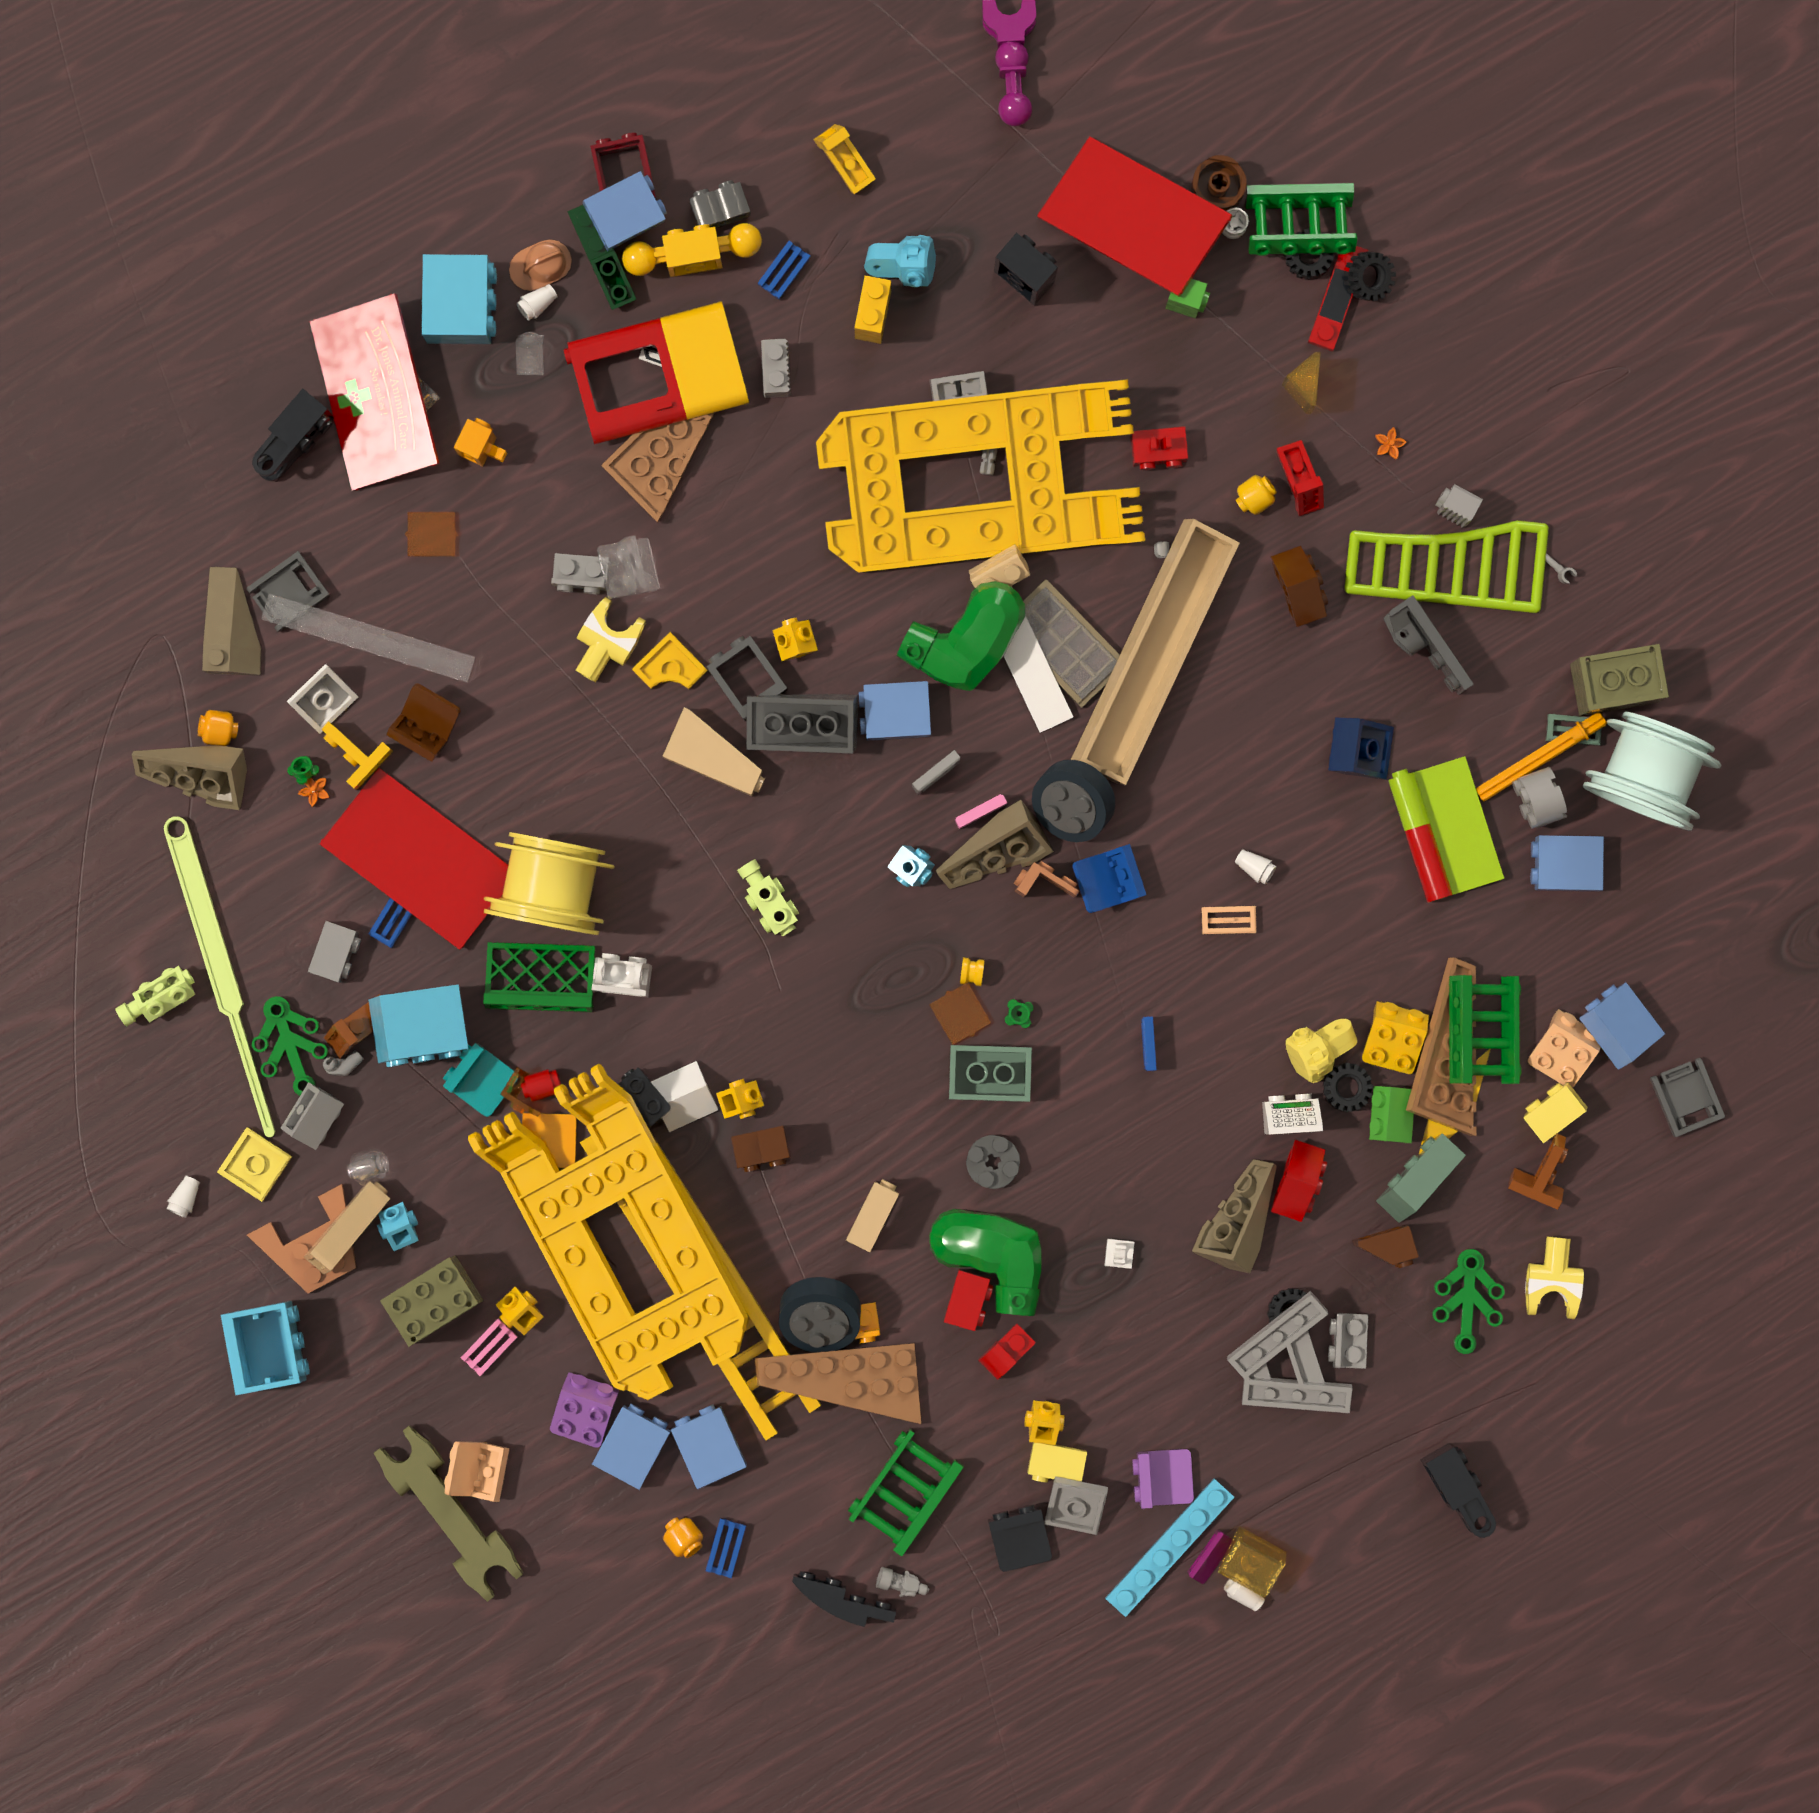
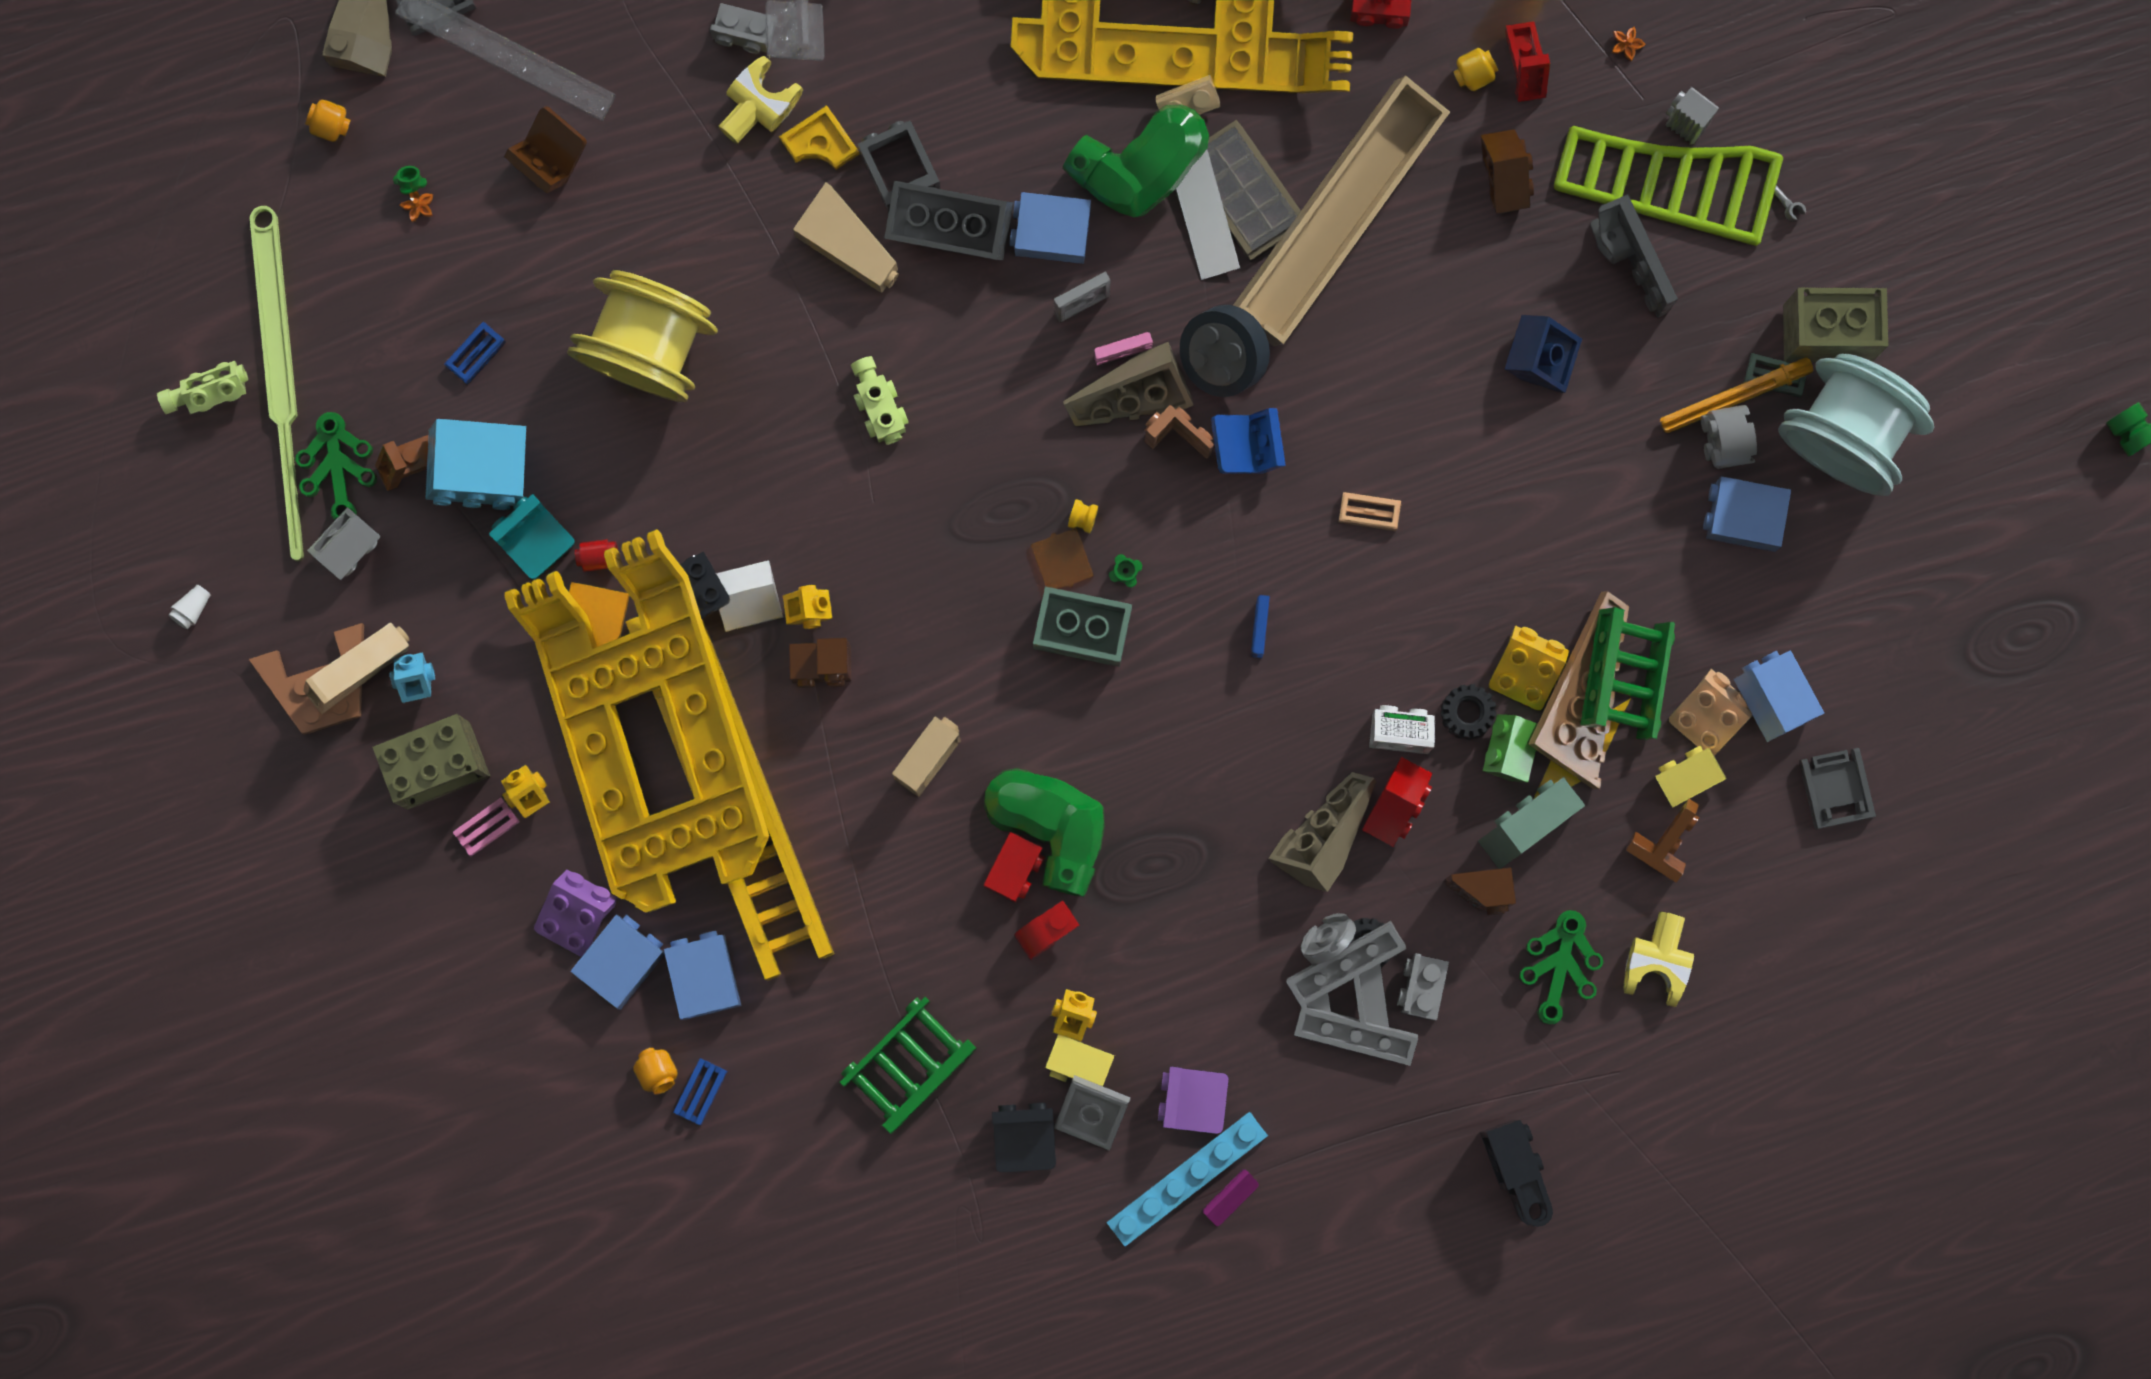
camera: 15 degrees right, 5 degrees down
(205, 771) = (304, 163): dark tan wedge -> none
(254, 1164) = (273, 586): light yellow tile -> none
(265, 1347) = (241, 780): medium azure container -> none
(322, 698) = (444, 108): white slope -> none
(334, 952) = (403, 376): light grey brick -> none
(342, 1067) = (388, 499): light grey arm -> none
(356, 756) = (477, 186): yellow bracket -> none
(368, 1166) = (394, 608): clear head -> none
(417, 858) = (510, 293): red piece -> none
(476, 1470) = (443, 955): light nougat bracket -> none
(476, 1549) = (383, 953): olive piece -> none
(511, 1093) = (565, 560): clear orange bracket -> none
(535, 999) = (611, 465): green fence -> none
(622, 977) = (704, 451): white brick -> none
(794, 639) = (957, 134): yellow brick -> none
(819, 1314) = (849, 851): wheel -> none
(830, 1597) = (805, 1166): black slope -> none
(861, 1378) = (883, 931): medium nougat wing -> none
(868, 1323) = (898, 872): light orange bracket -> none
(906, 1584) = (890, 1167): light grey piece -> none
(912, 866) = (1038, 392): brick -> none
(1006, 1169) = (1059, 738): dark grey plate -> none
(1119, 1253) = (1188, 847): white tile -> none
(1161, 549) = (1364, 109): light grey hand -> none
(1243, 1595) = (1259, 1242): white cone -> none
(1252, 1562) = (1275, 1211): clear yellow slope -> none
(1256, 866) = (1409, 459): white cone -> none
(1258, 1315) = (1329, 939): none -> light grey tile
(1315, 1052) = (1439, 666): light yellow piece -> none
(1445, 829) = (1620, 455): lime door -> none

